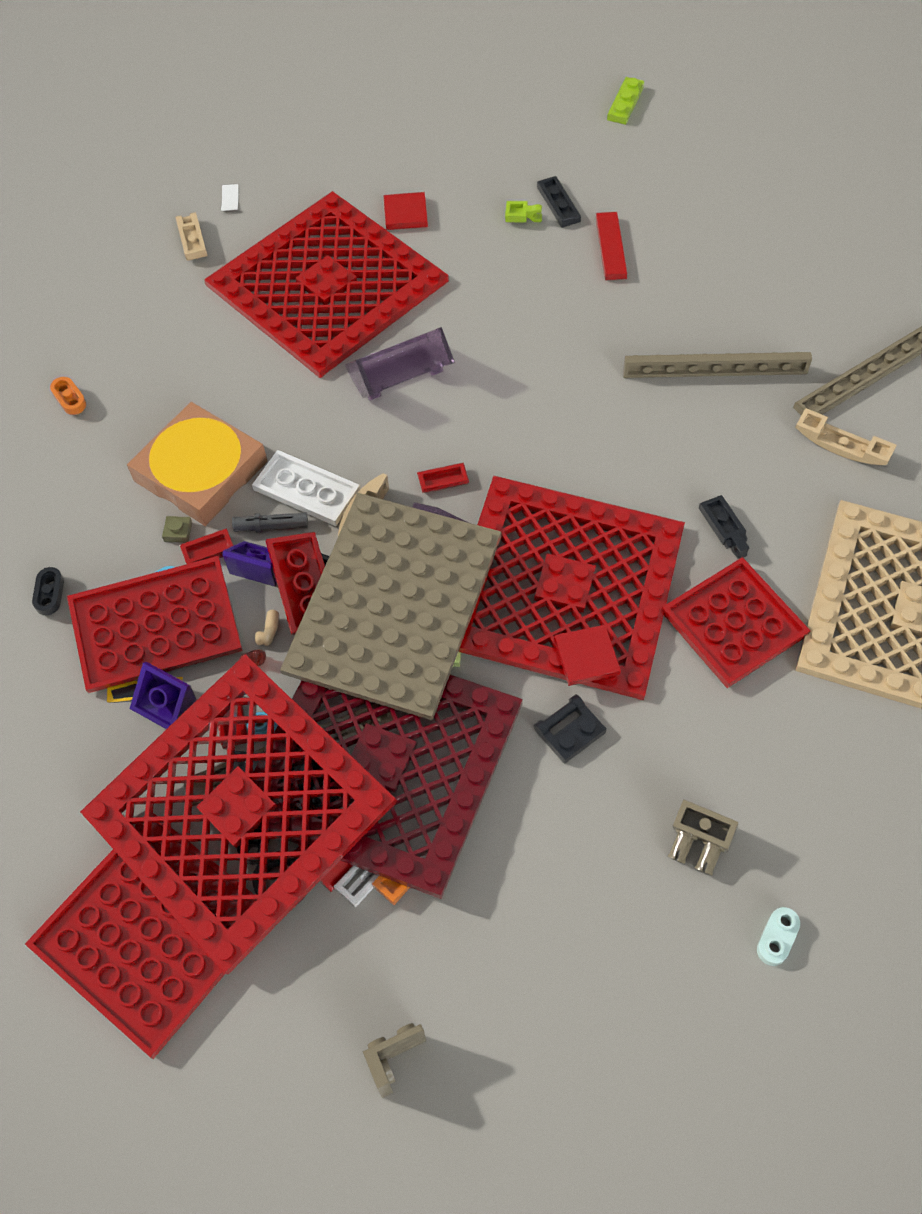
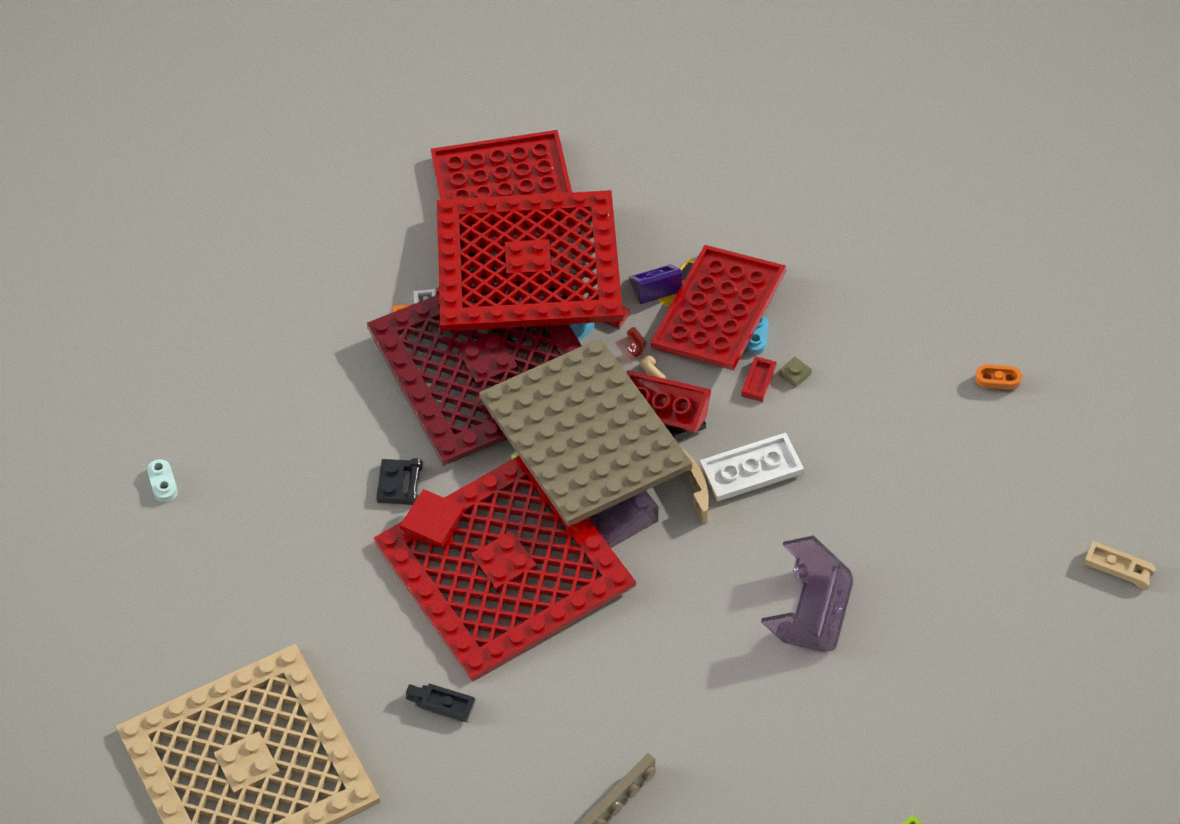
camera: 130 degrees right, 5 degrees down
(47, 593) = (815, 270): black plate -> none
(197, 463) = (841, 413): tile -> none
(229, 197) = (1152, 631): white sticker -> none
(250, 562) = (724, 391): dark purple slope -> none
(267, 522) = (748, 419): dark grey pin -> none
(326, 282) = (969, 632): red plate -> none
(382, 1050) = (309, 237): dark tan bracket -> none
(405, 211) = (1001, 750): red tile -> none
(443, 478) = (673, 559): red tile -> none
(705, 825) = (257, 487): dark tan brick -> none
(735, 622) = (365, 637): red plate -> none

